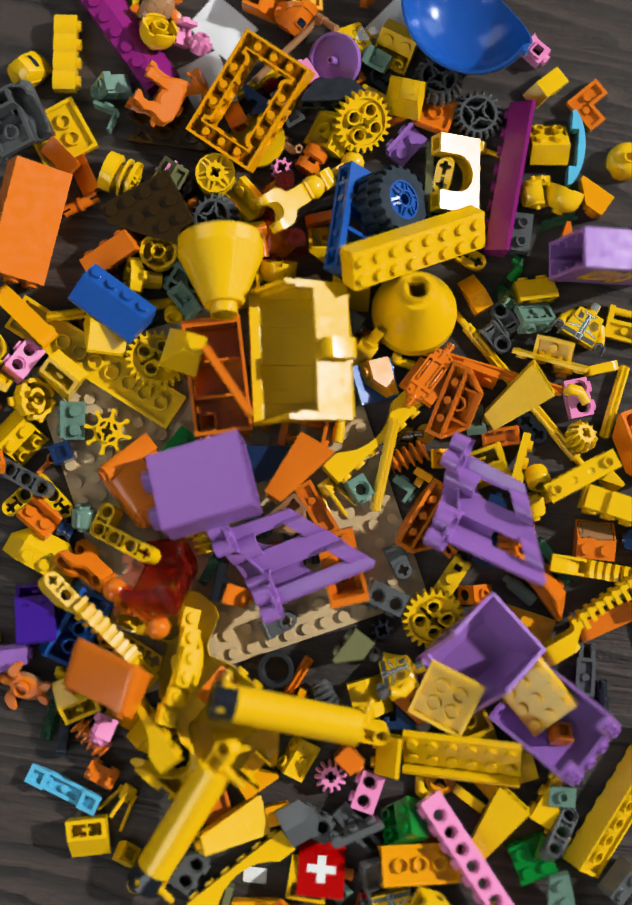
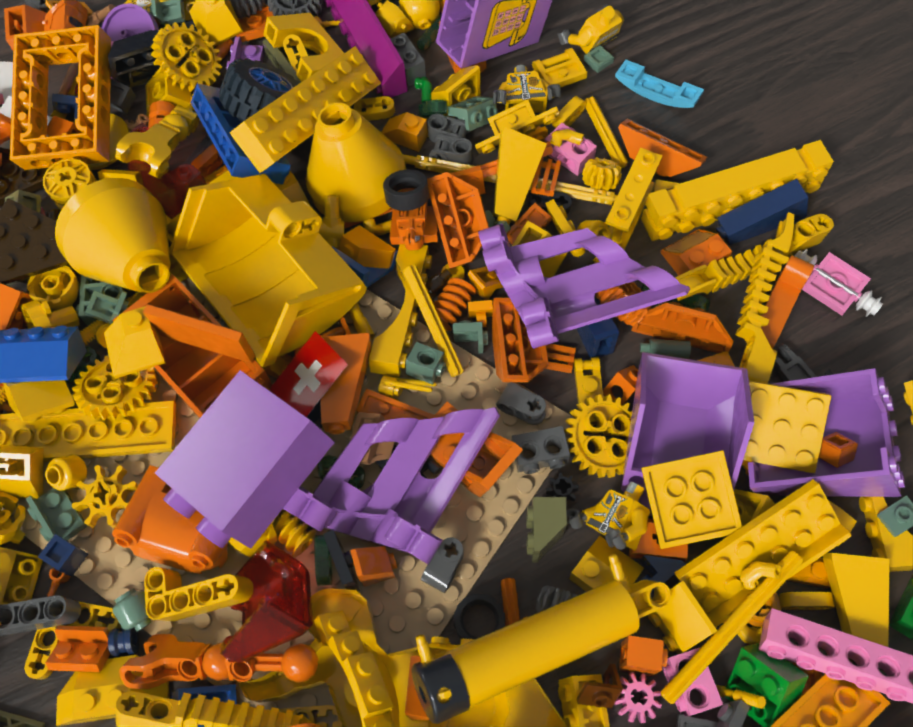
camera: 30 degrees left, 20 degrees down
(93, 399) = (66, 472): none -> yellow head
(277, 452) = (309, 375): none -> red sticker
(311, 762) = (602, 693): none -> reddish brown bracket
(385, 819) = (749, 698): none -> yellow piece
(411, 782) = (729, 629): none -> yellow axle
(441, 350) = (406, 200): none -> black tyre
(448, 765) = (751, 574): none -> yellow arm
(530, 420) = (548, 165): none -> orange tile

